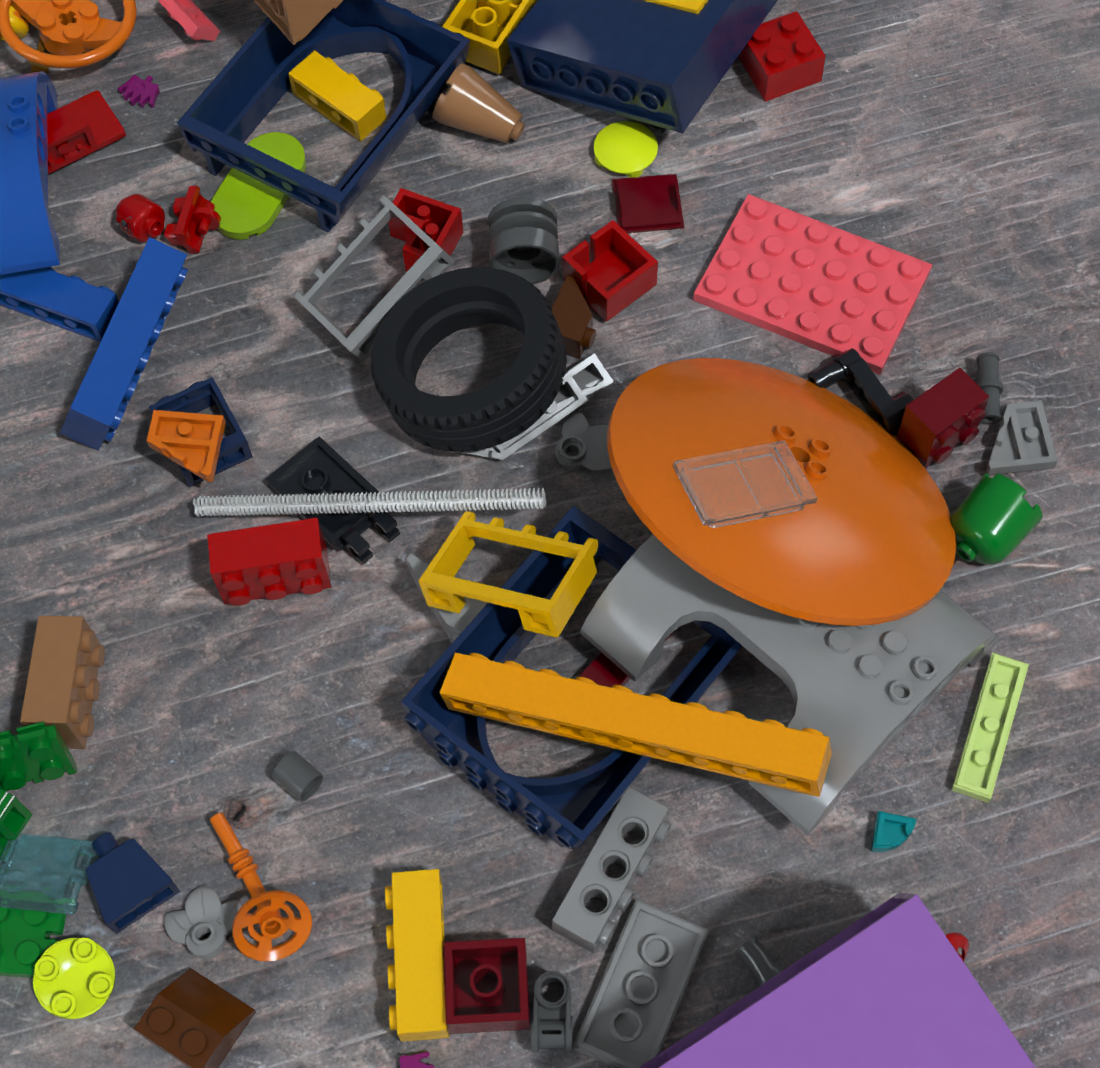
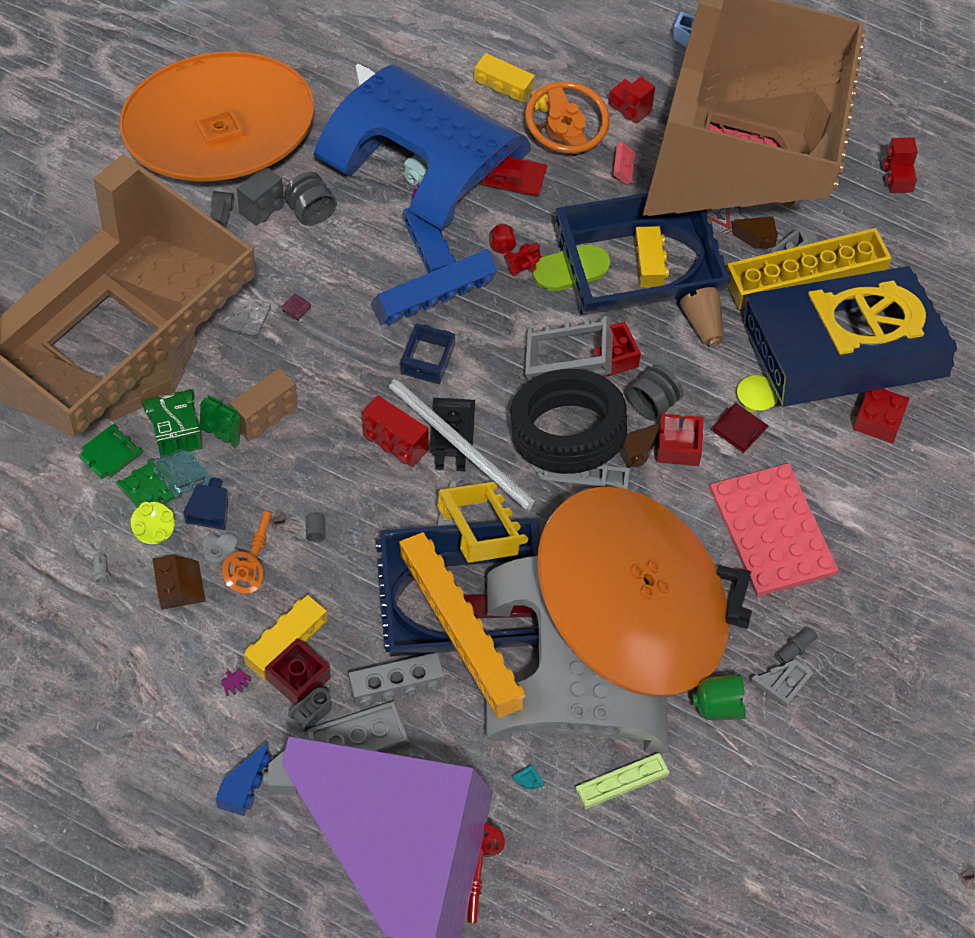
camera: 40 degrees right, 5 degrees down
(140, 91) = (566, 181): magenta piece -> none
(188, 440) = (415, 351): orange wing -> none
(745, 484) = (600, 563): clear piece -> none
(943, 418) = (752, 636): dark red brick -> none

